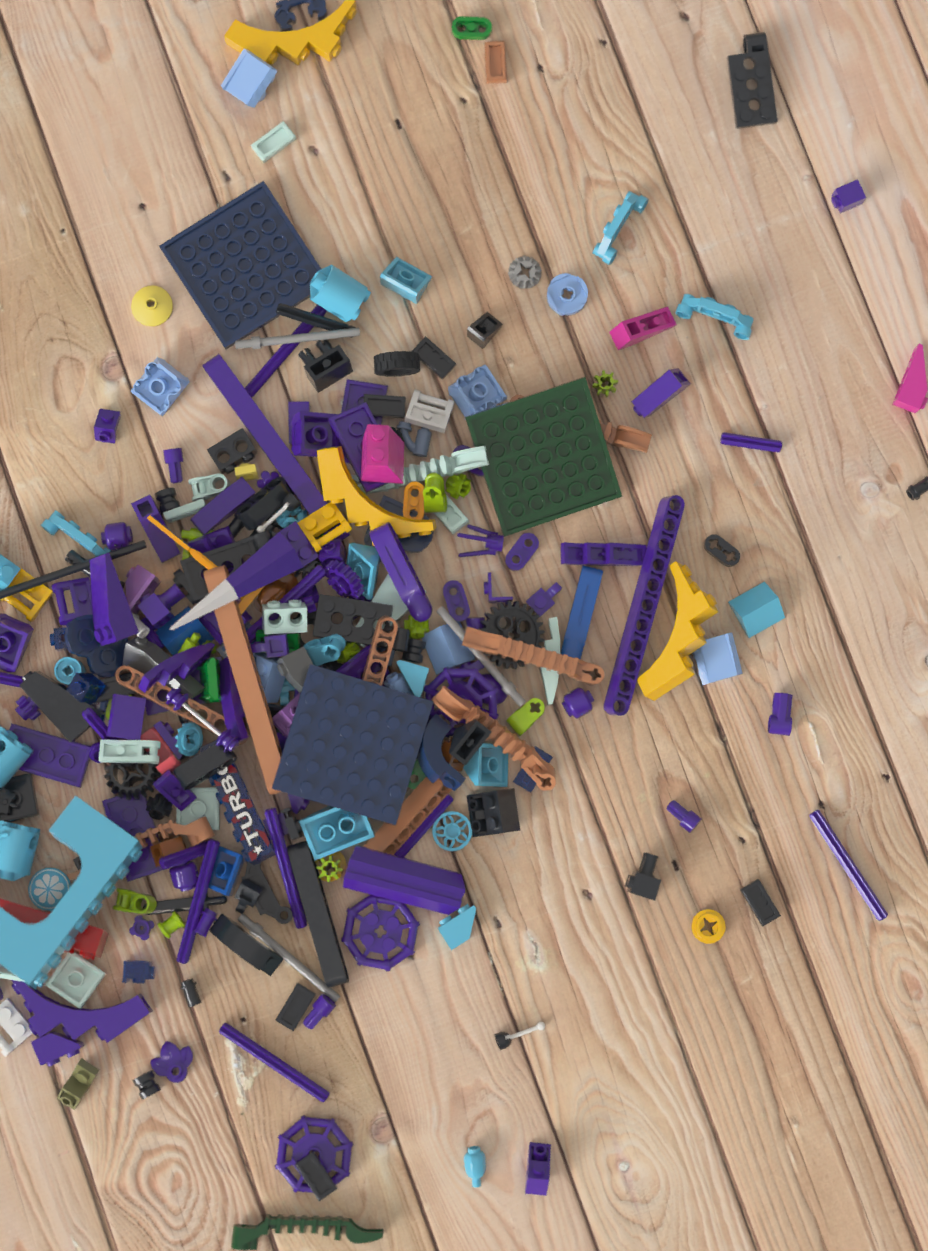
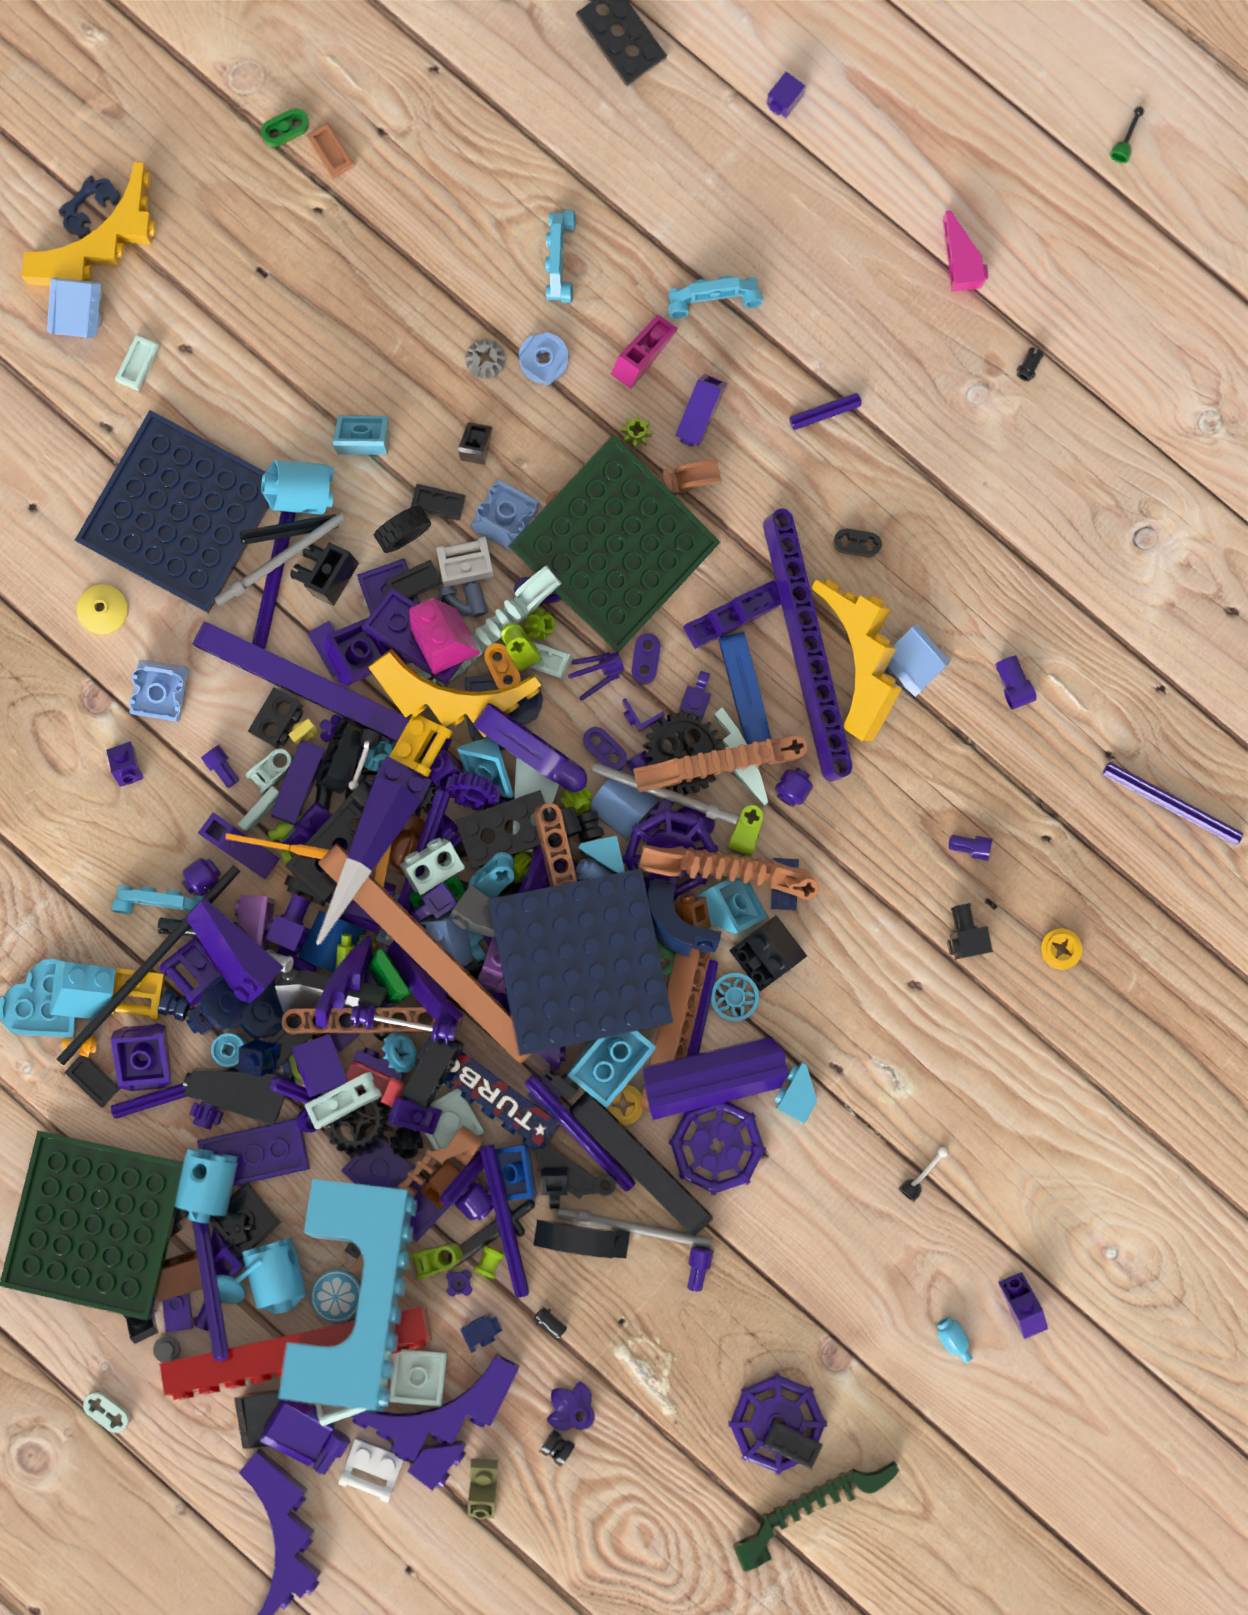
camera: 25 degrees left, 0 degrees up
(47, 617) = (174, 1005): none -> dark blue wheel
(167, 499) = (234, 808): black wheel -> none
(205, 922) = (525, 1239): dark purple pin -> none
(274, 1062) = (680, 1348): dark purple axle -> none
(295, 1006) = (670, 1276): black tile -> none
(326, 863) = (620, 1105): lime gear -> none
(468, 740) = (701, 889): black slope -> none
(757, 609) = (929, 584): medium azure slope -> none
(760, 902) = (1102, 893): black plate -> none

